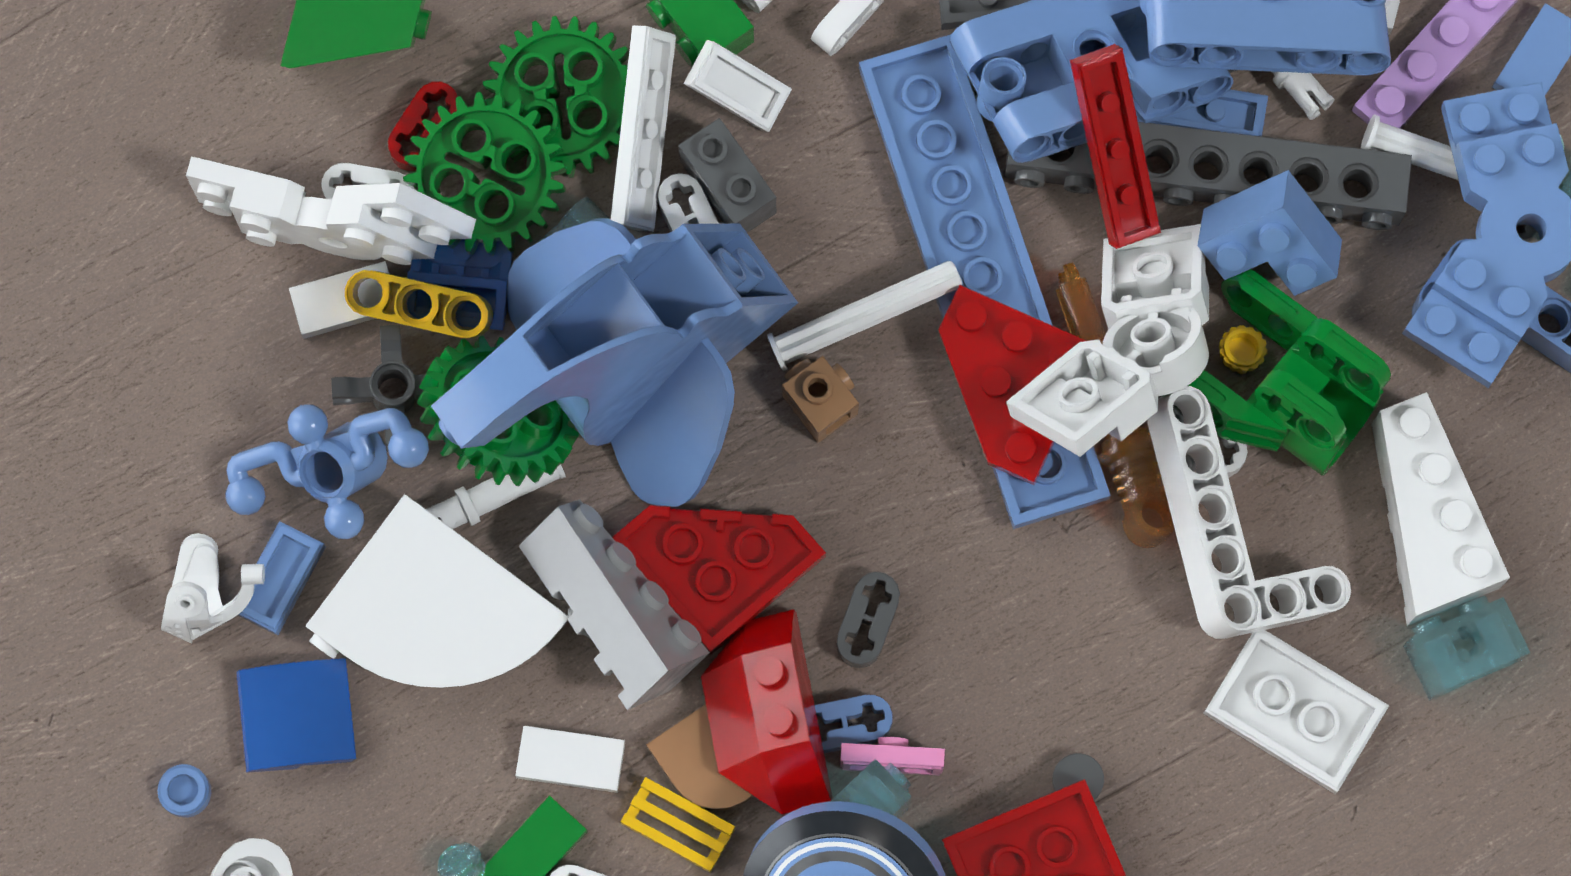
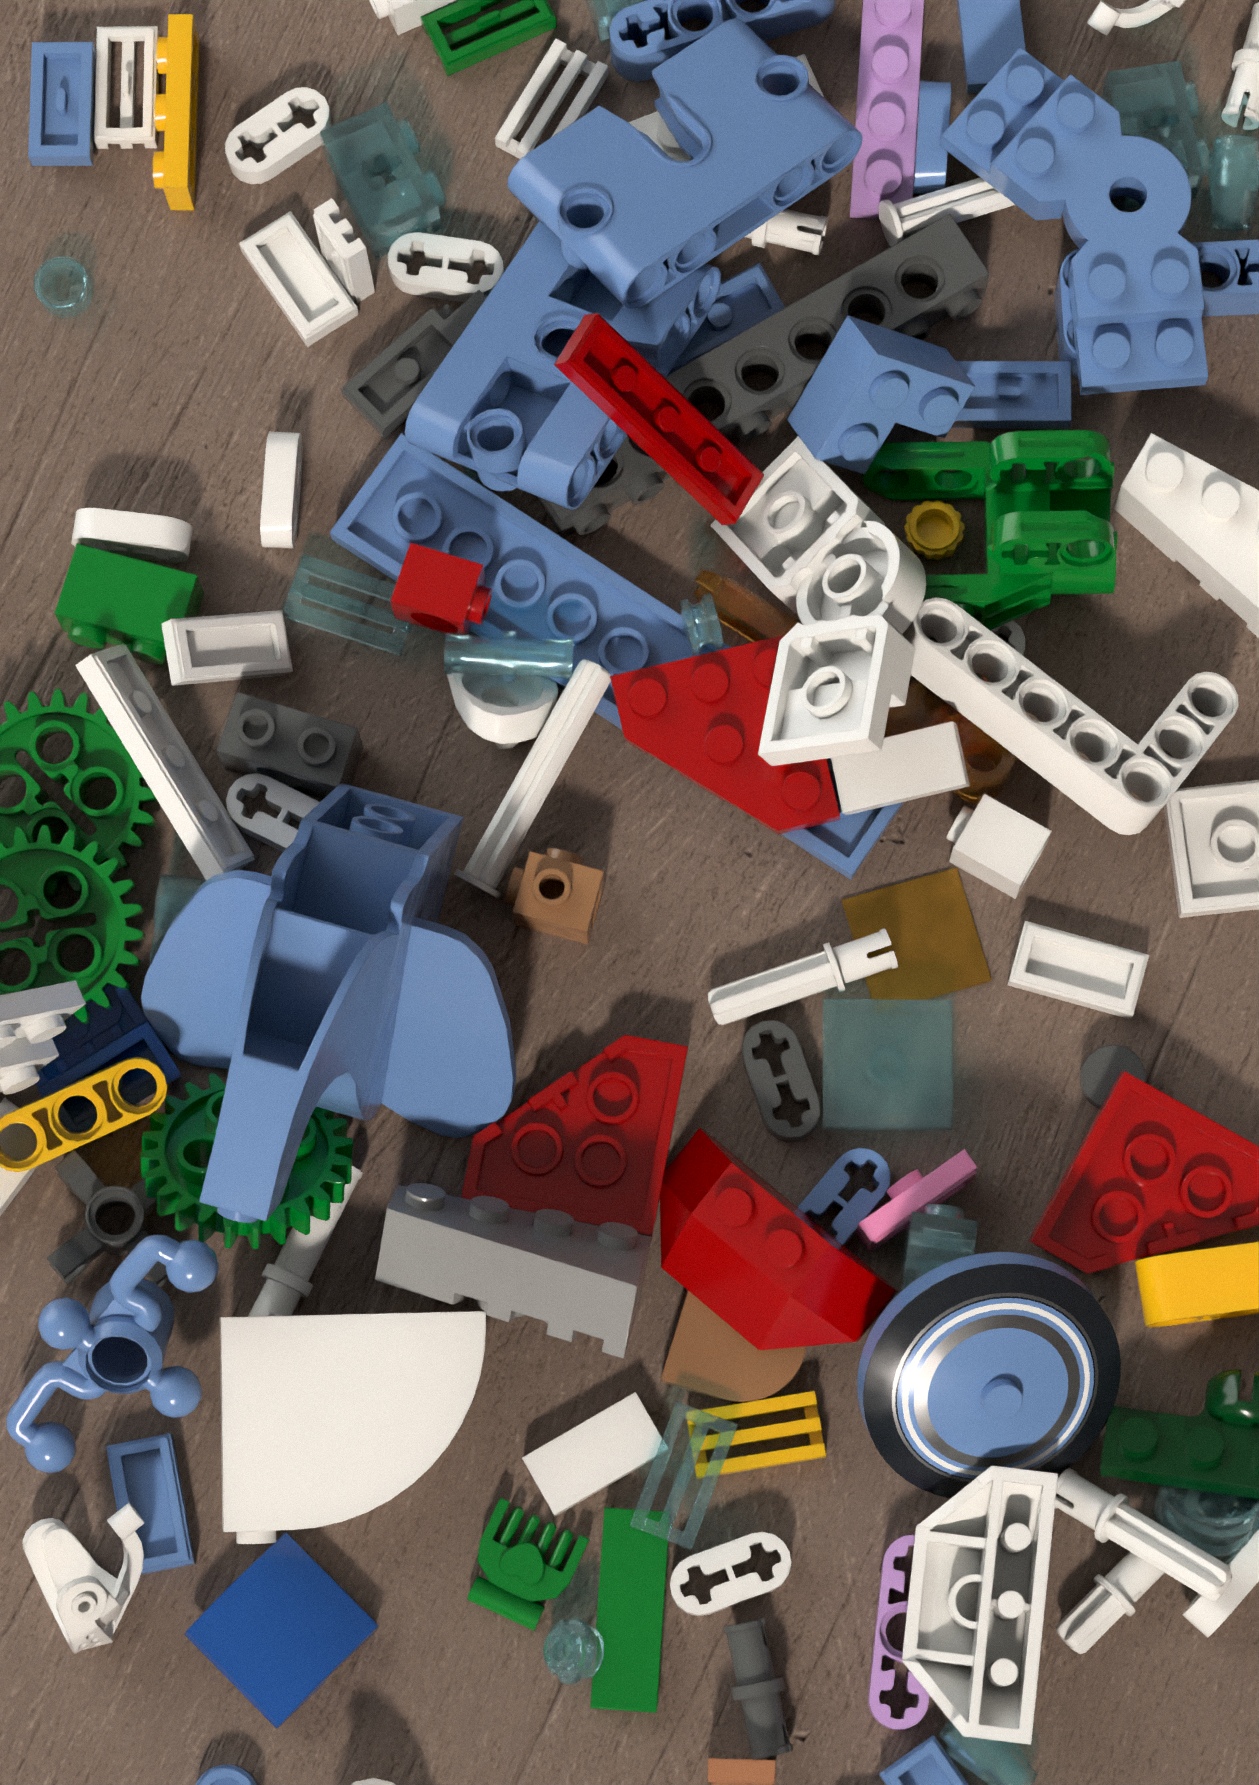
camera: 35 degrees left, 0 degrees up
(468, 795) = (520, 1572): none -> green piece
(602, 843) = (664, 1528): none -> clear light blue tile
(860, 152) = (337, 625): none -> clear light blue tile
(883, 244) = (502, 709): none -> white piece
(895, 151) = (440, 591): none -> red brick
(907, 224) = (508, 656): none -> clear light blue pin
(931, 566) = (801, 978): none -> white axle
(942, 661) = (887, 1065): none -> clear light blue plate
(1025, 599) = (928, 933): none -> pearl gold sticker
(1042, 295) = (701, 624): none -> clear light blue bush
(1096, 482) = (905, 769): none -> white tile
(1111, 695) = (1078, 970): none -> white tile
(1121, 577) = (997, 844): none -> white brick
(1363, 303) = (1017, 395): none -> medium blue plate
(1452, 86) = (931, 123): none -> medium blue beam

